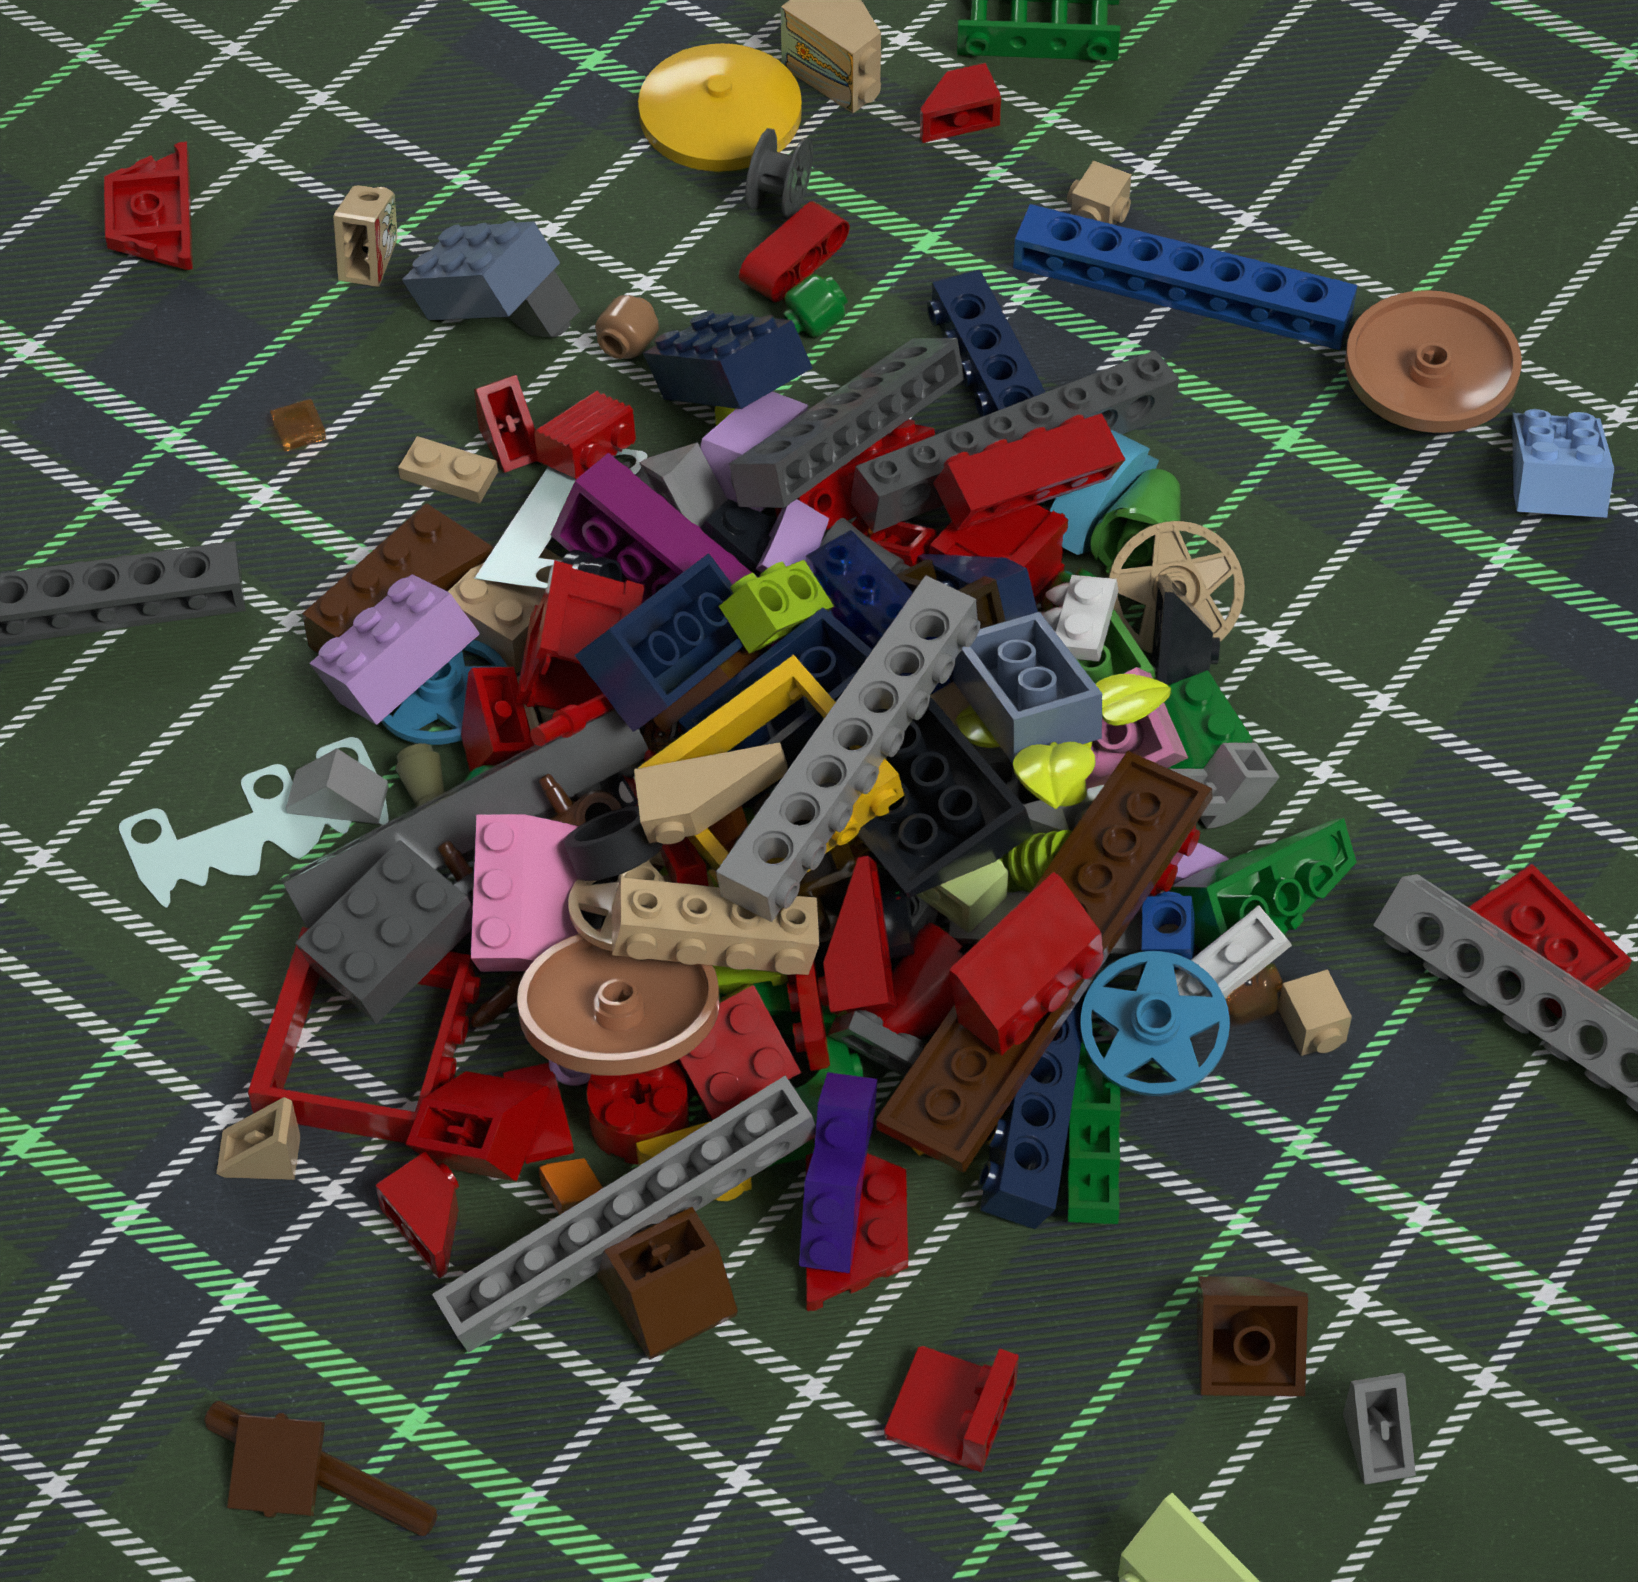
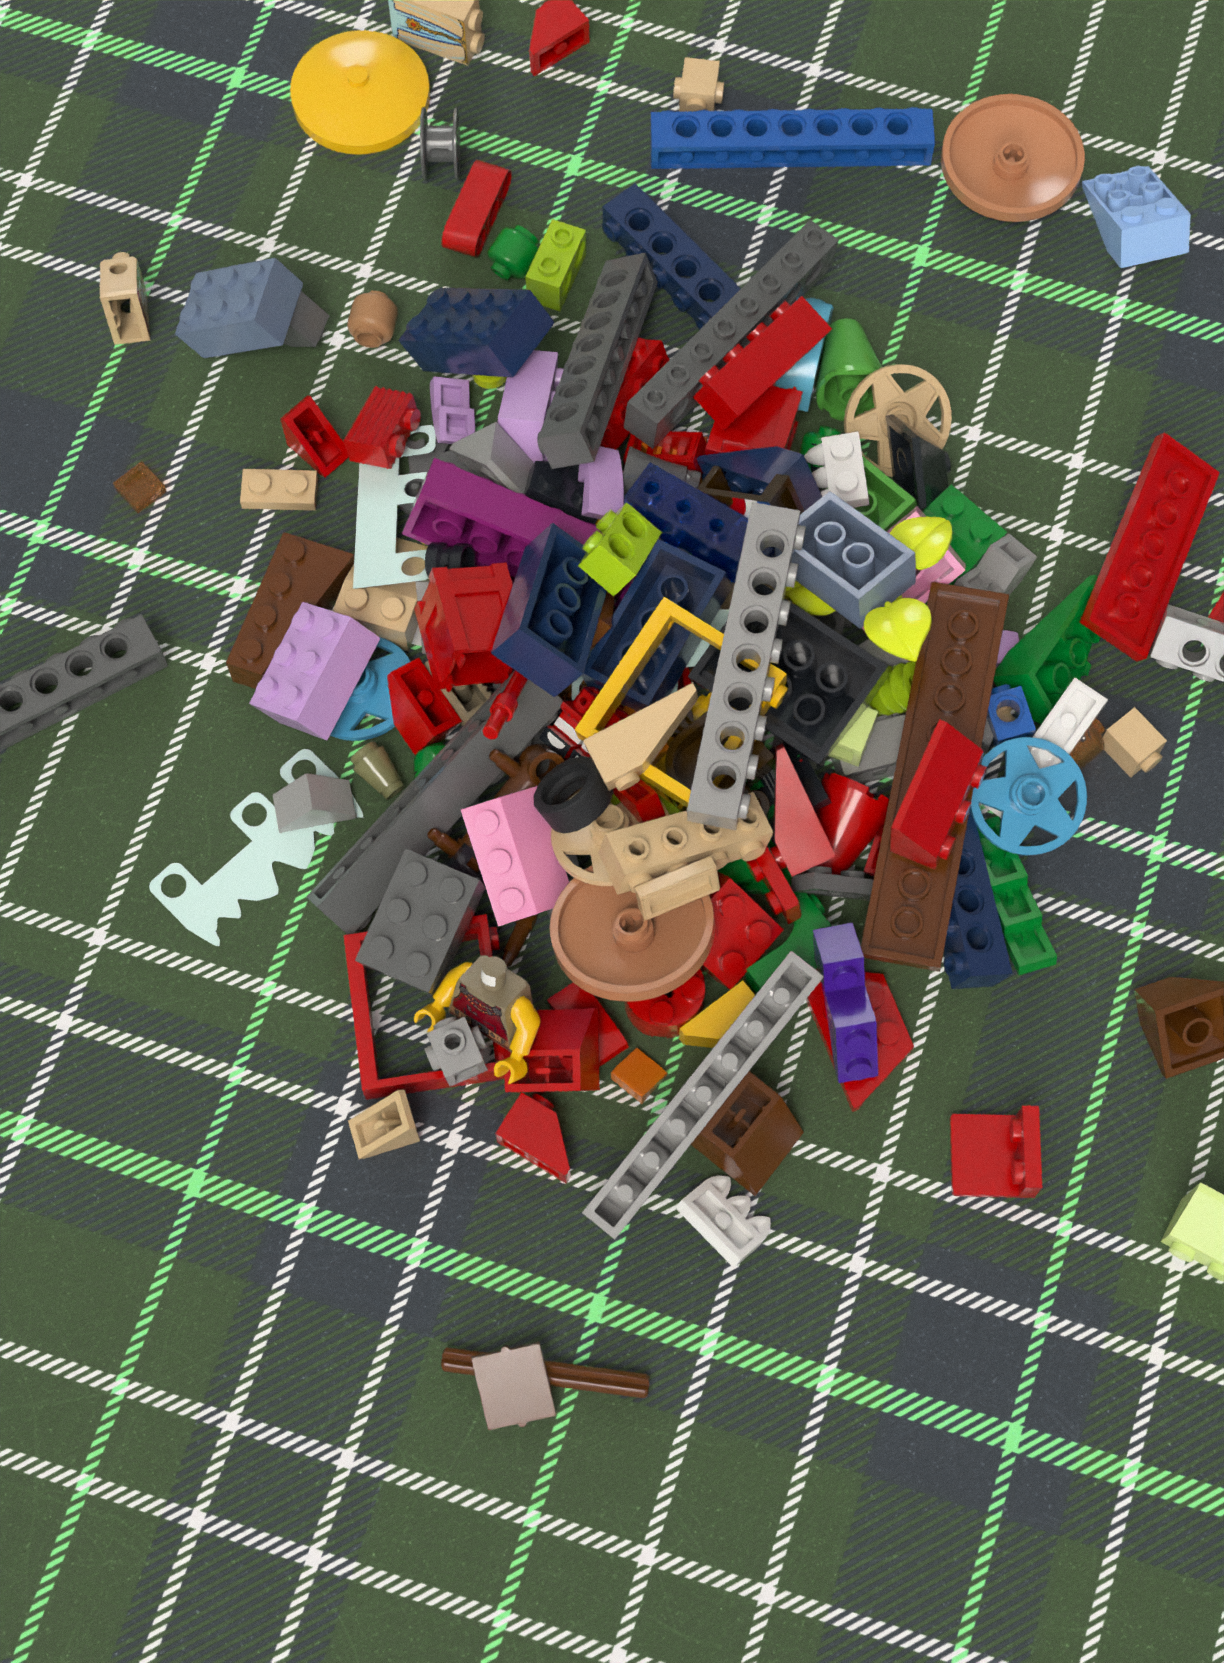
camera: 20 degrees left, 15 degrees up
(367, 1077) = (456, 1063): none -> light grey brick
(427, 1036) = (494, 1002): none -> torso
(599, 1372) = (723, 1219): none -> white plate
(675, 429) = (451, 409): none -> lavender slope
(681, 966) = (677, 888): none -> tan tile
(856, 329) = (556, 264): none -> lime brick
(1423, 808) = (1150, 547): none -> red plate

